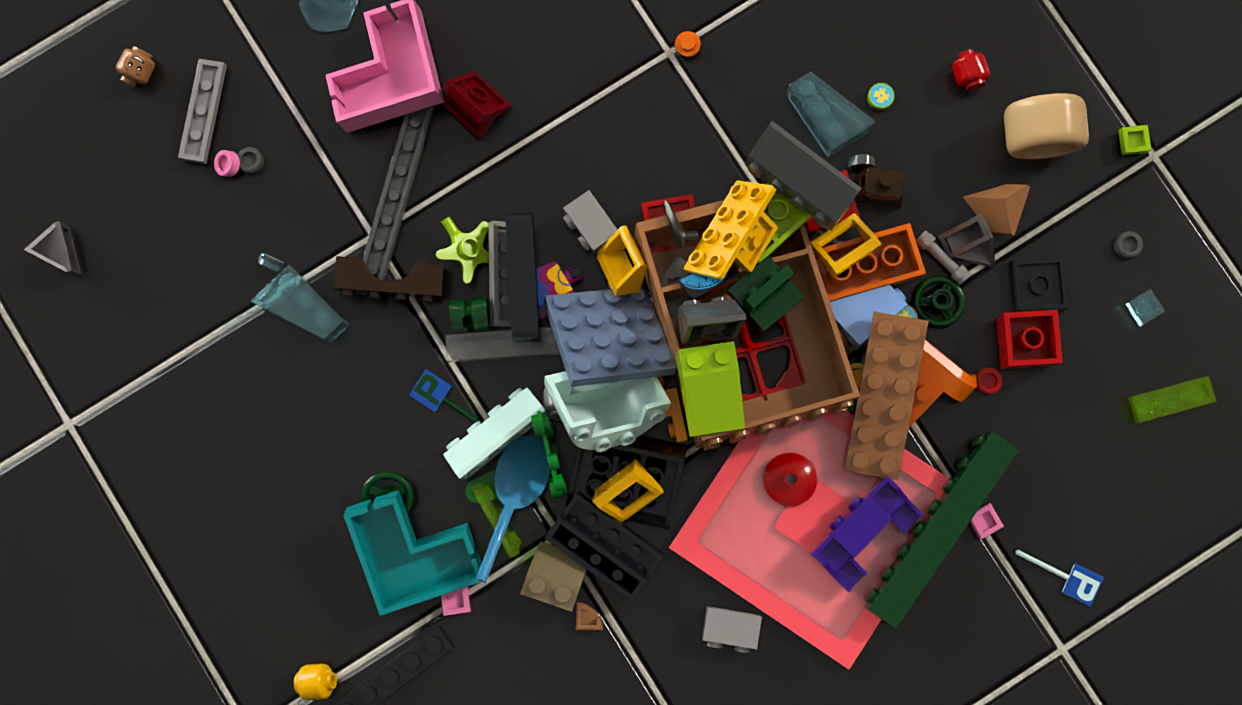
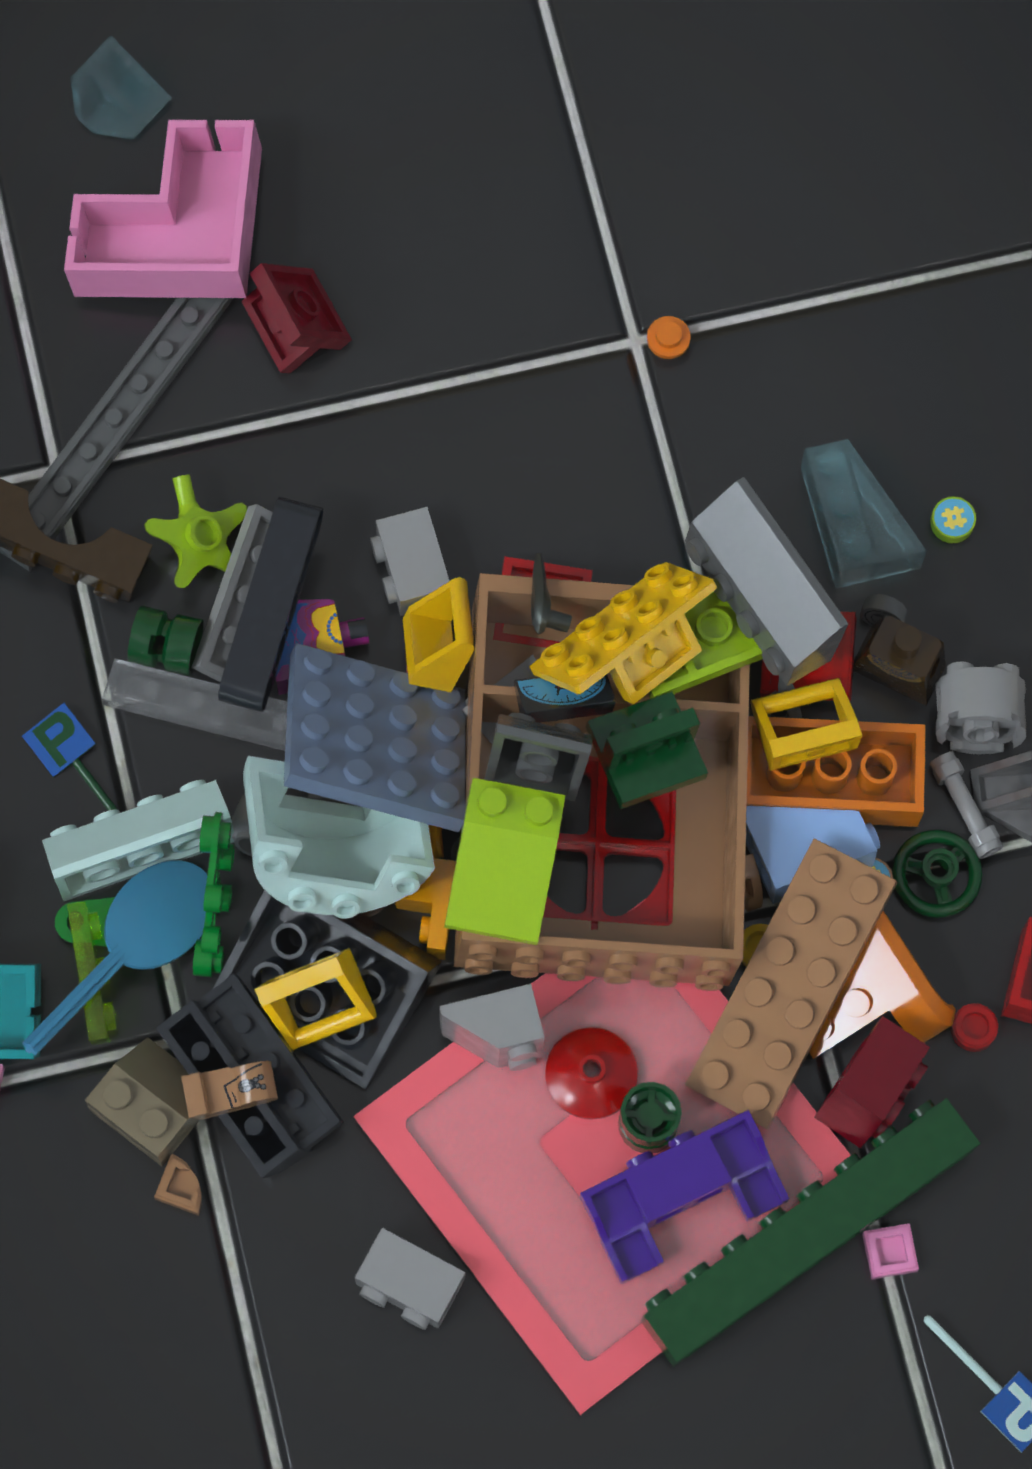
camera: 10 degrees right, 10 degrees down
(598, 562) = (228, 1089): none -> medium nougat leg
(735, 476) = (497, 1027): none -> light grey slope
(833, 496) = (649, 1117): none -> dark green wheel
(935, 201) = (980, 708): none -> light grey brick
(949, 435) = (874, 1083): none -> dark red brick

